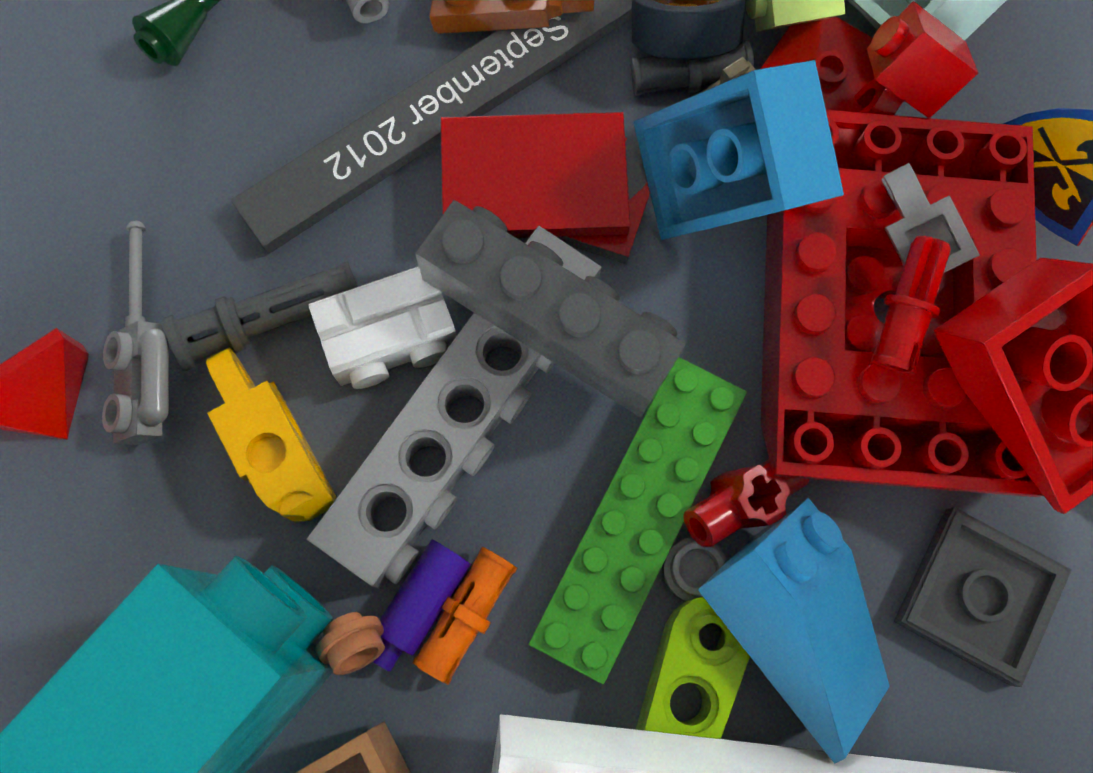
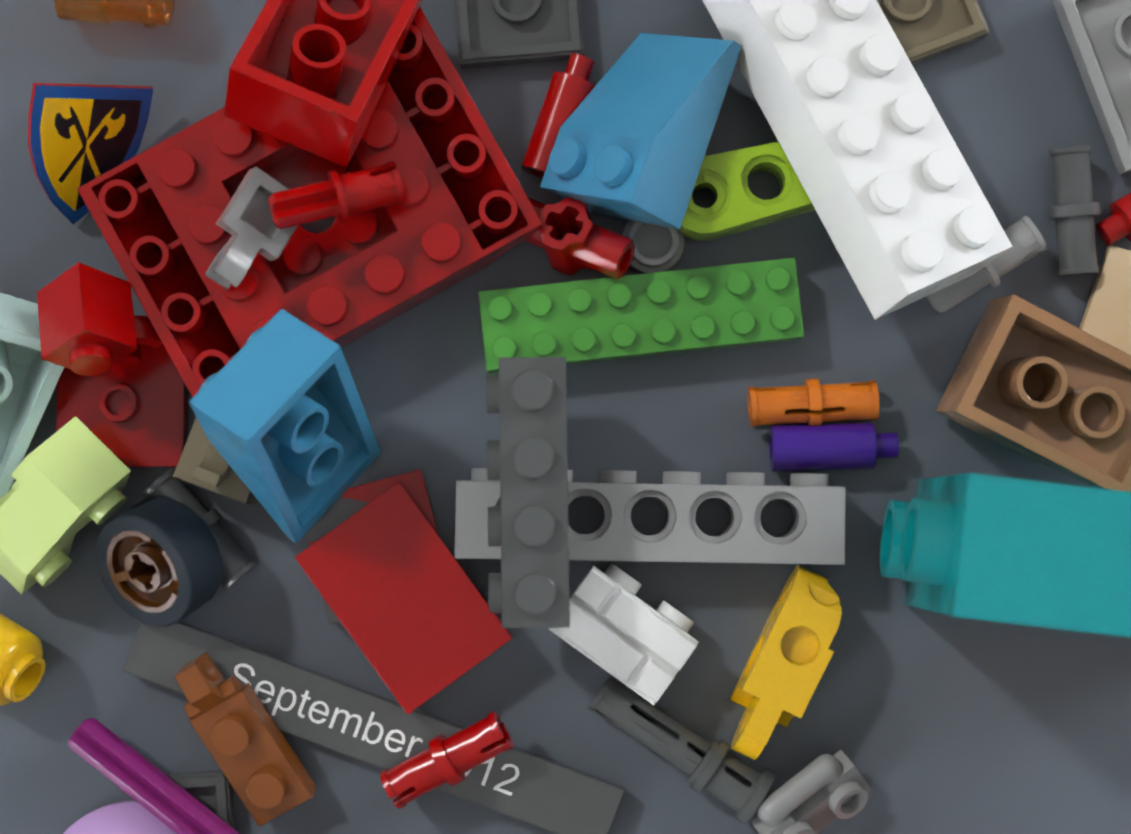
camera: 115 degrees left, 10 degrees up
(351, 643) = (897, 473): nougat plate -> none
(384, 124) = (446, 760): none -> red pin
(875, 576) = (562, 98): none -> red cylinder

